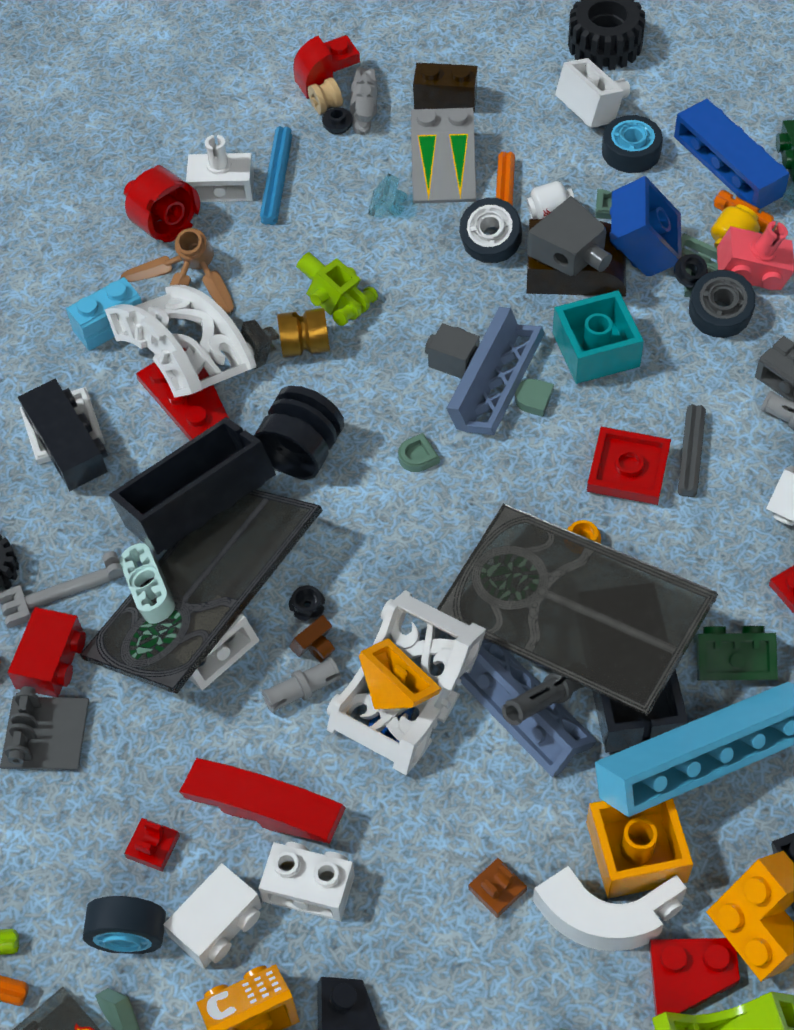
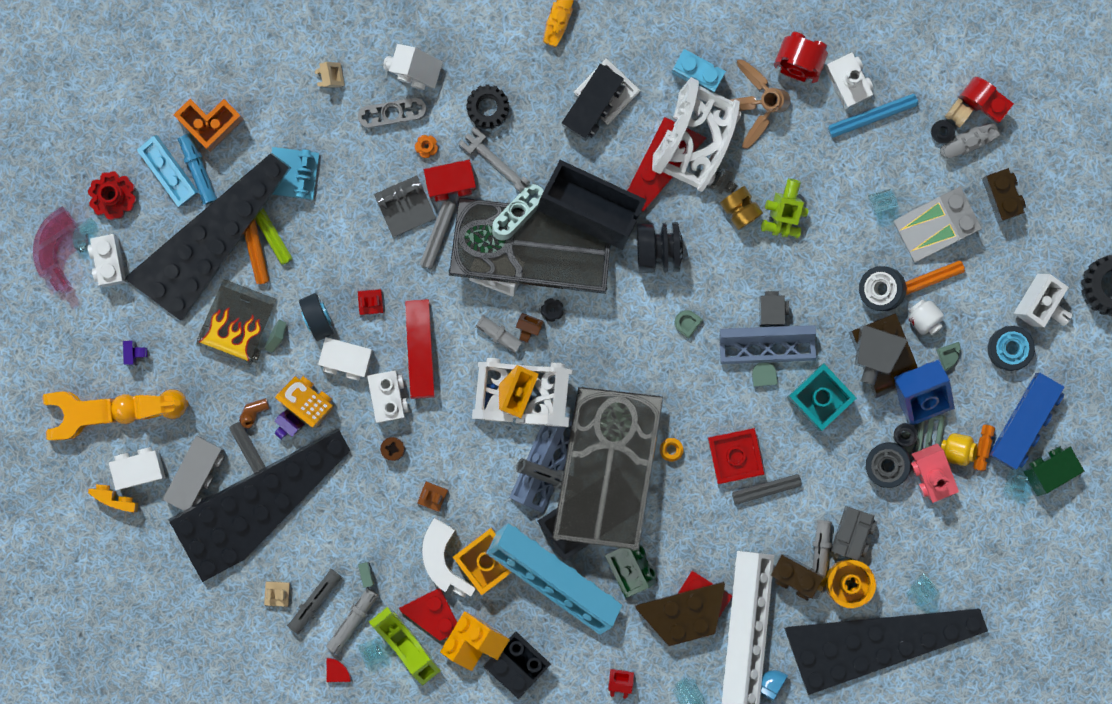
camera: 60 degrees right, 30 degrees up
(113, 706) = (437, 234): none -> light grey axle
(398, 919) = (395, 447): none -> reddish brown wheel

